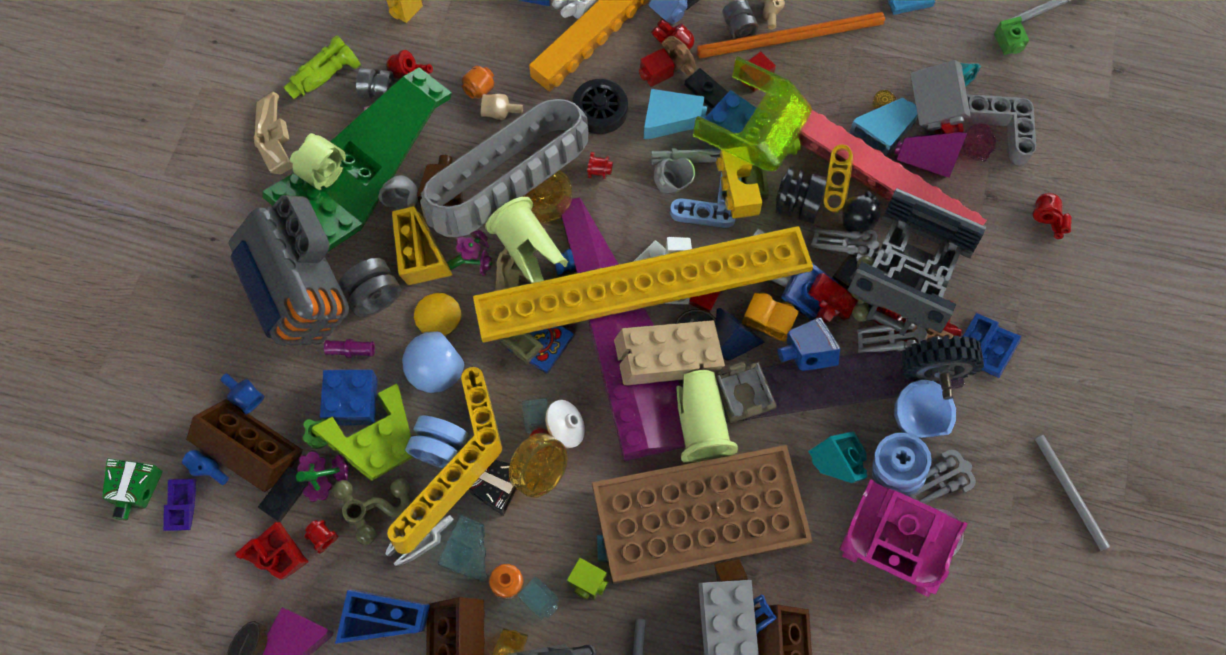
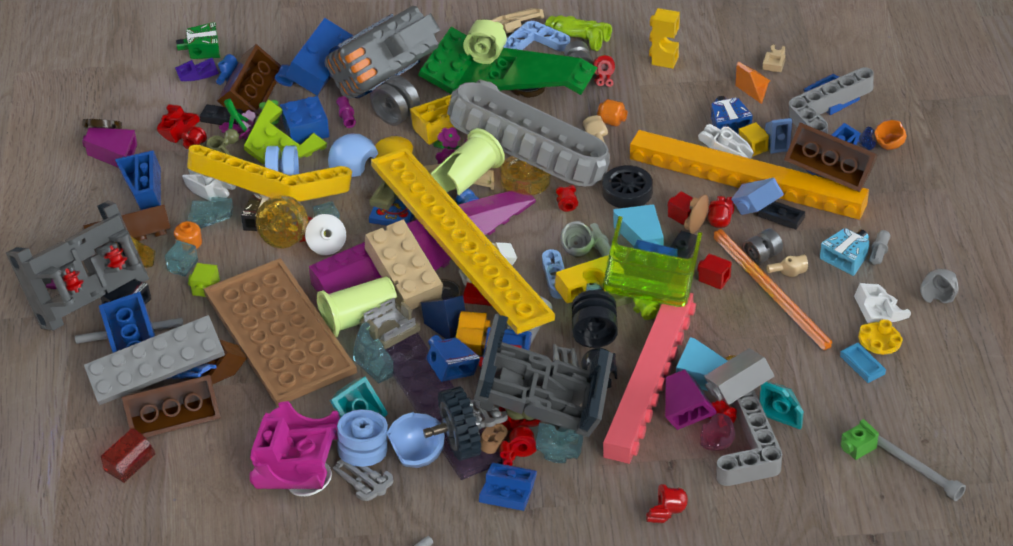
camera: 75 degrees right, 25 degrees down
(243, 348) = (308, 65): none -> blue brick
(302, 118) = (536, 31): none -> light blue beam
(779, 423) = (372, 356): none -> clear light blue slope
(834, 168) = (625, 336): yellow beam -> none
(959, 279) = (558, 445): none -> clear light blue cylinder

